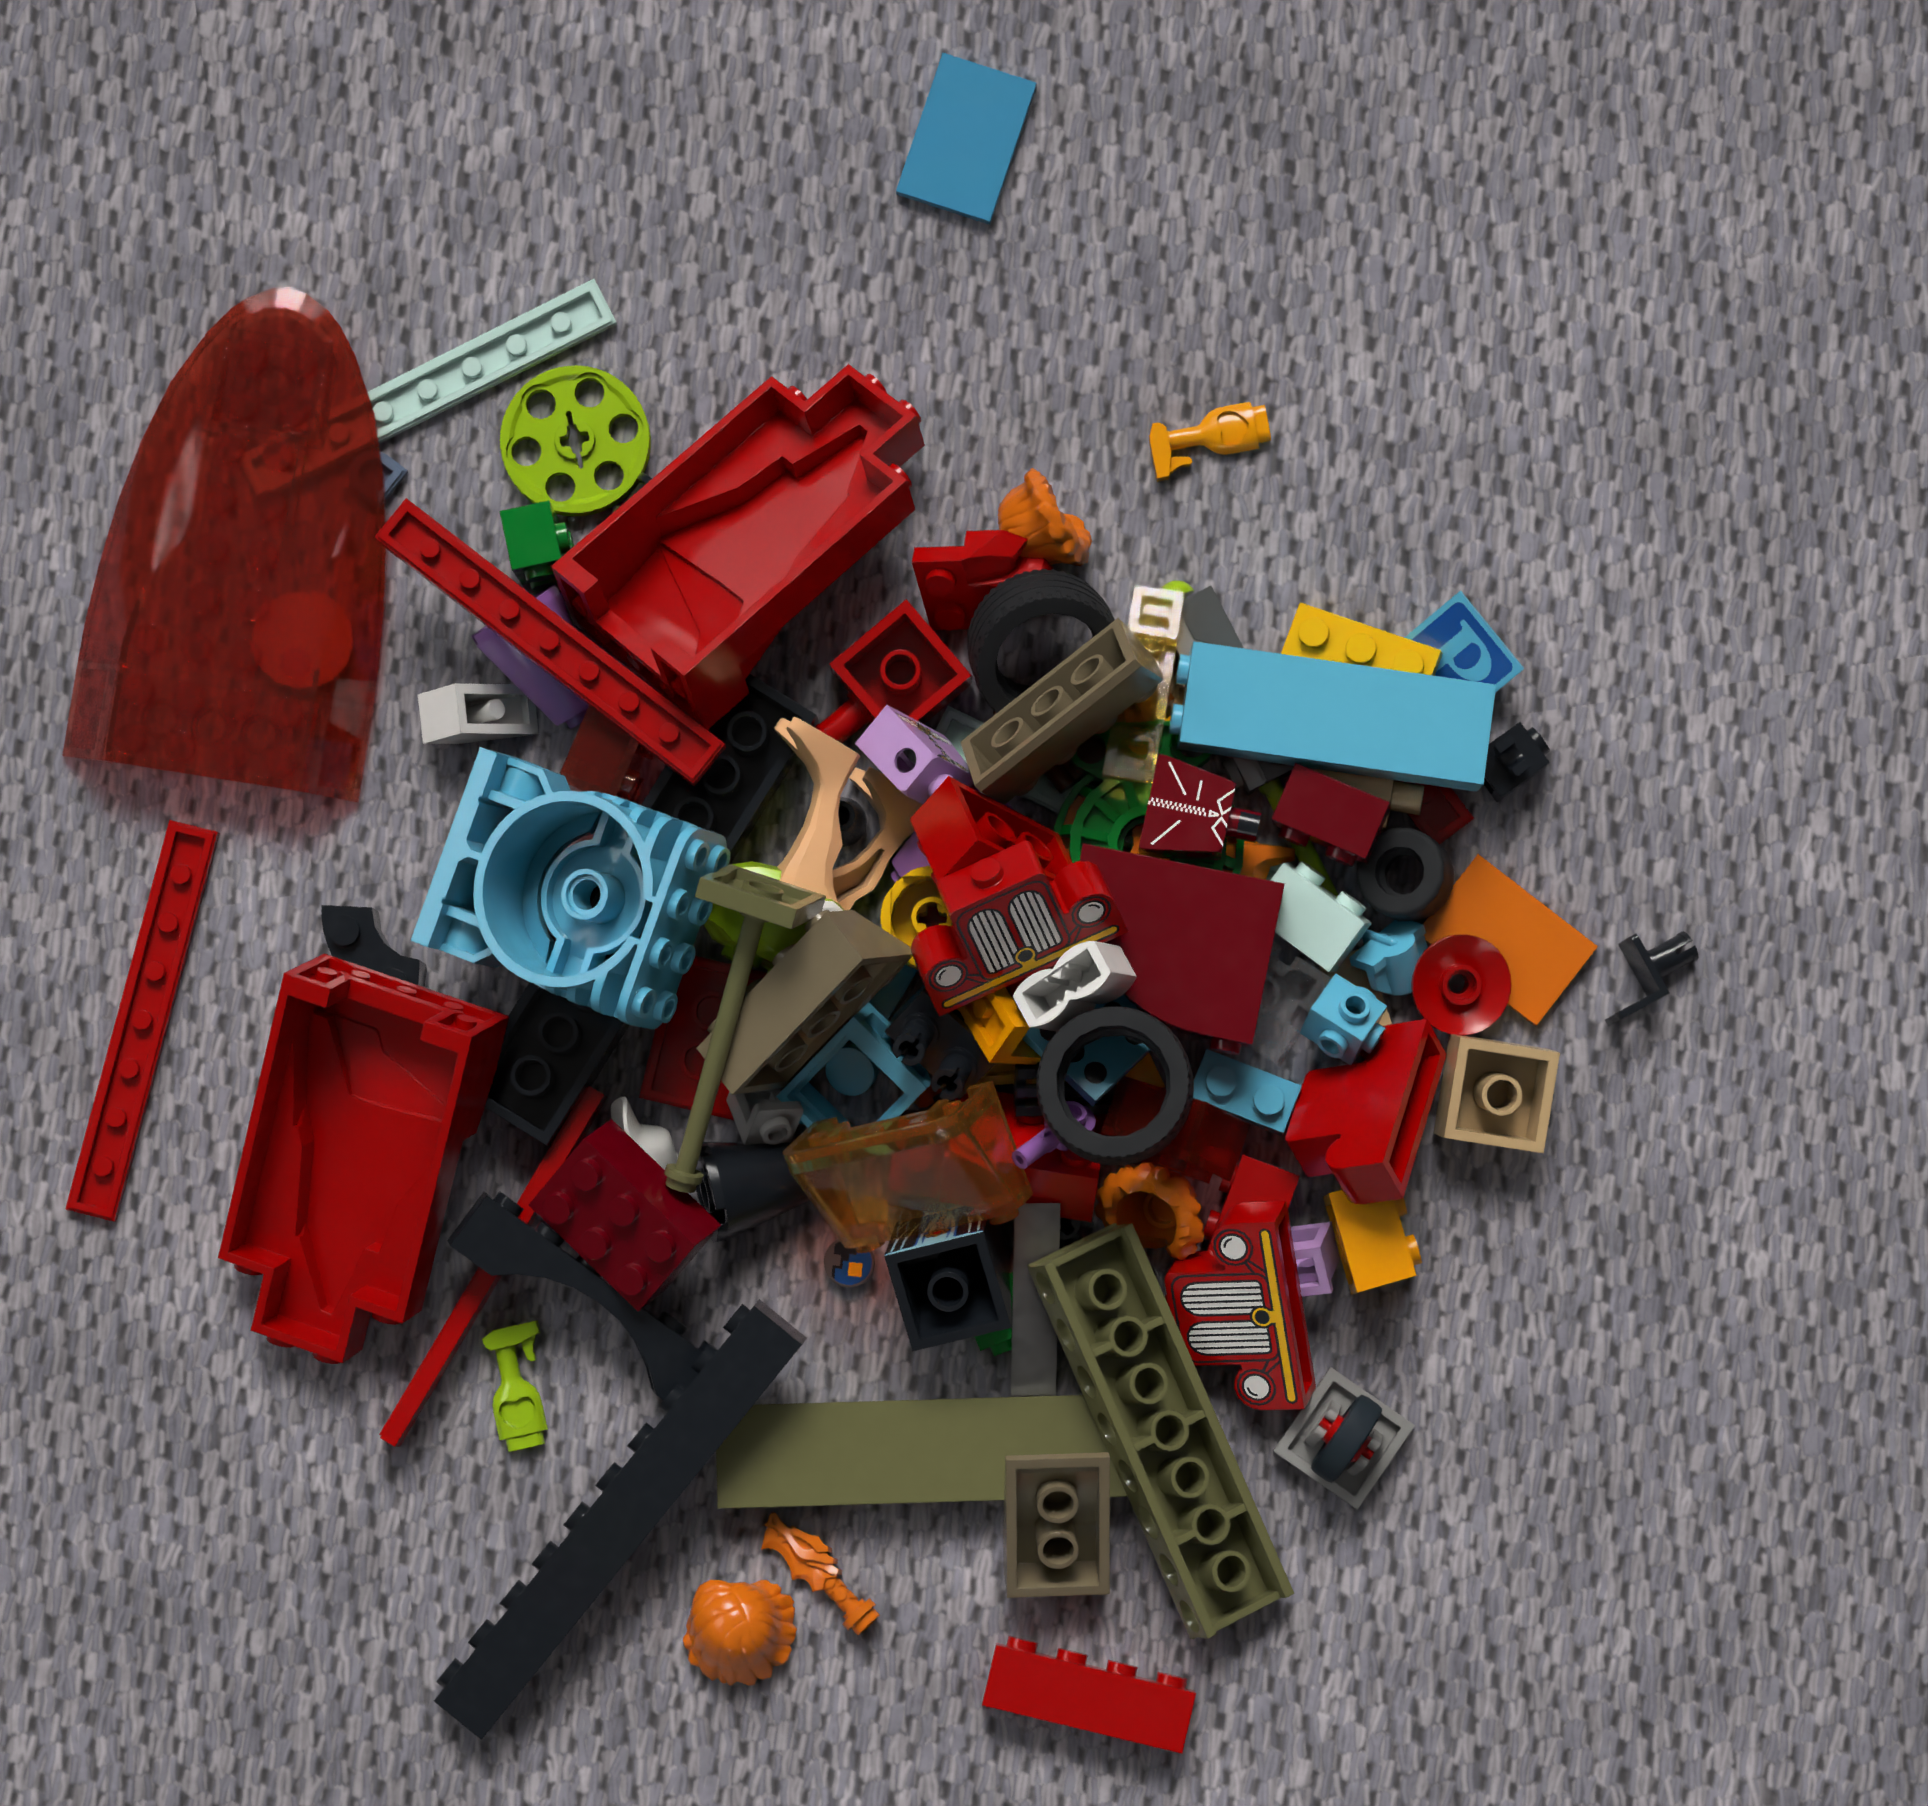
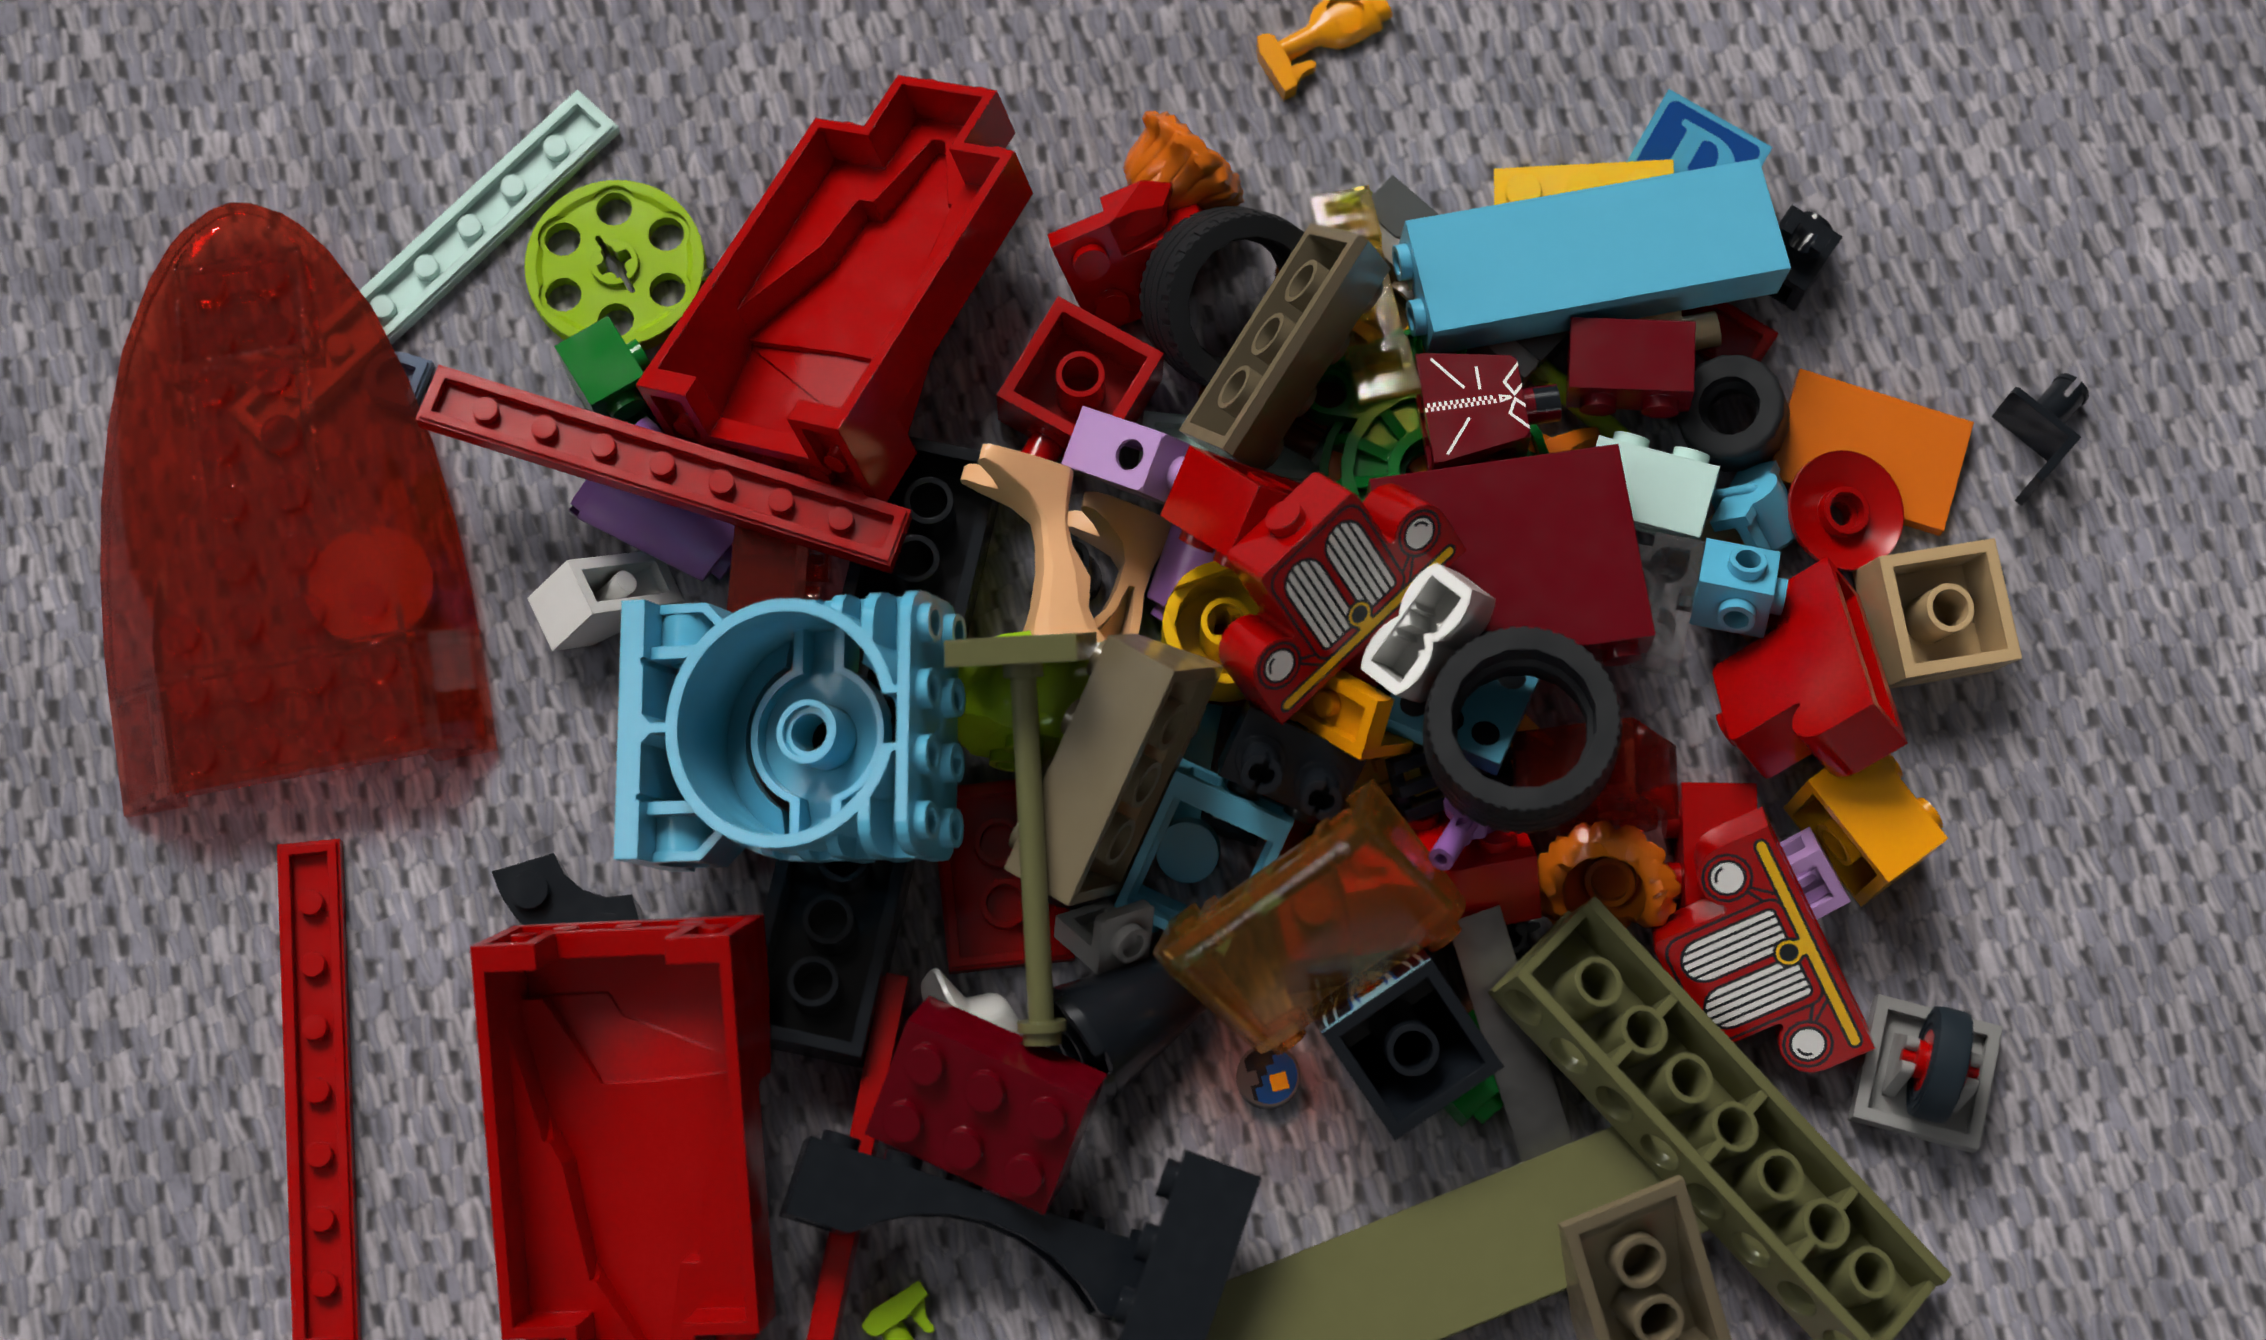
camera: 30 degrees left, 10 degrees down
(1245, 1091) = (1675, 708): medium azure brick -> none

